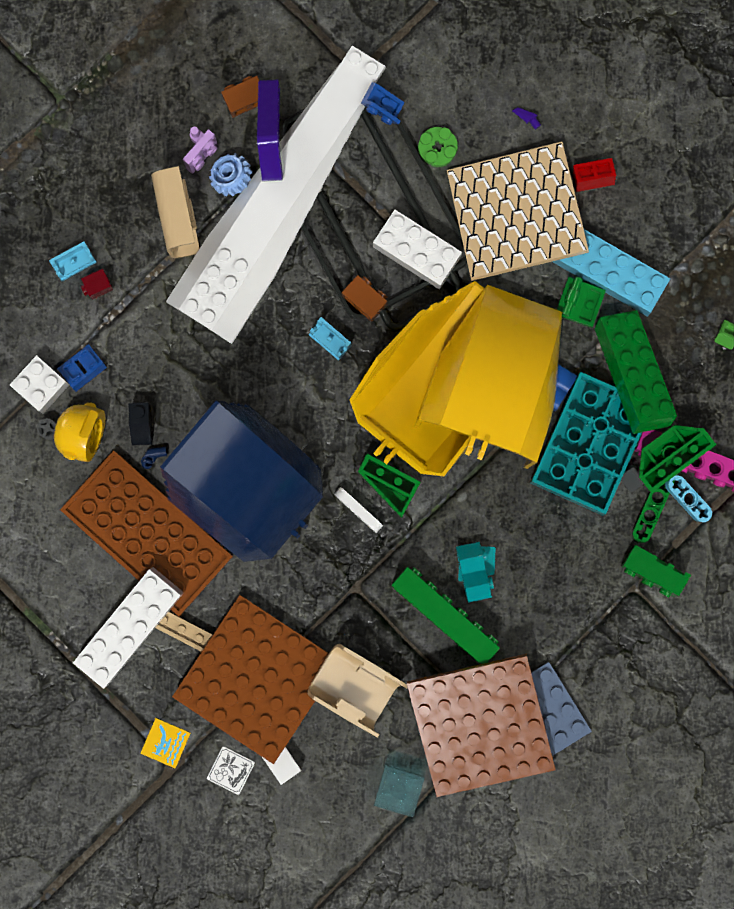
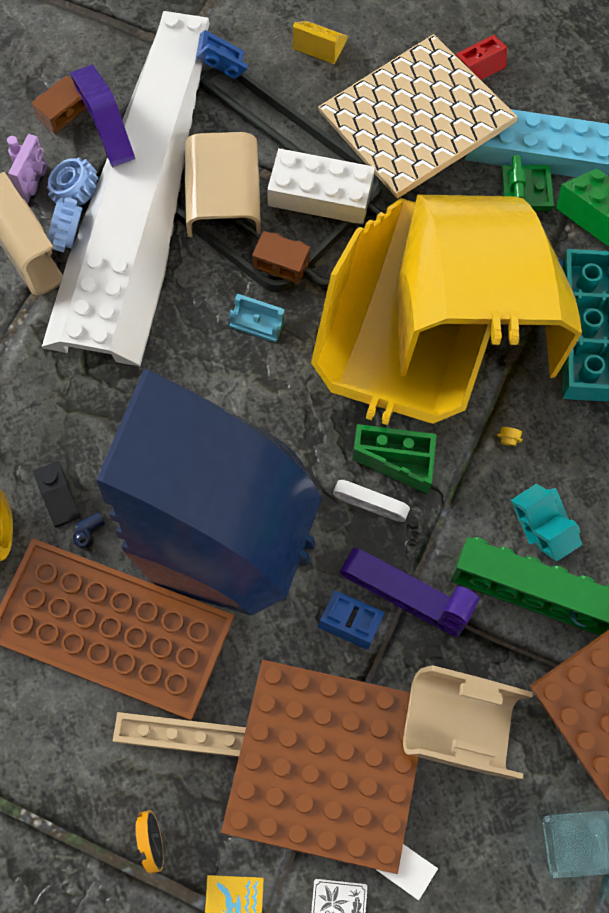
camera: 25 degrees left, 15 degrees down
(125, 685) = (150, 841): none -> tile
(128, 627) = (126, 761): white brick -> none
(212, 212) = (64, 224): none -> light blue gear
(319, 594) = (363, 627): none -> blue piece
(342, 220) = (222, 177): none -> tan piece
(355, 583) = (410, 594): none -> dark purple beam
(447, 152) = (303, 78): bright green plate -> none
(472, 106) = (318, 41): none -> yellow slope
(477, 498) = (510, 436): none -> yellow plate
(528, 117) = (383, 31): dark purple bar -> none

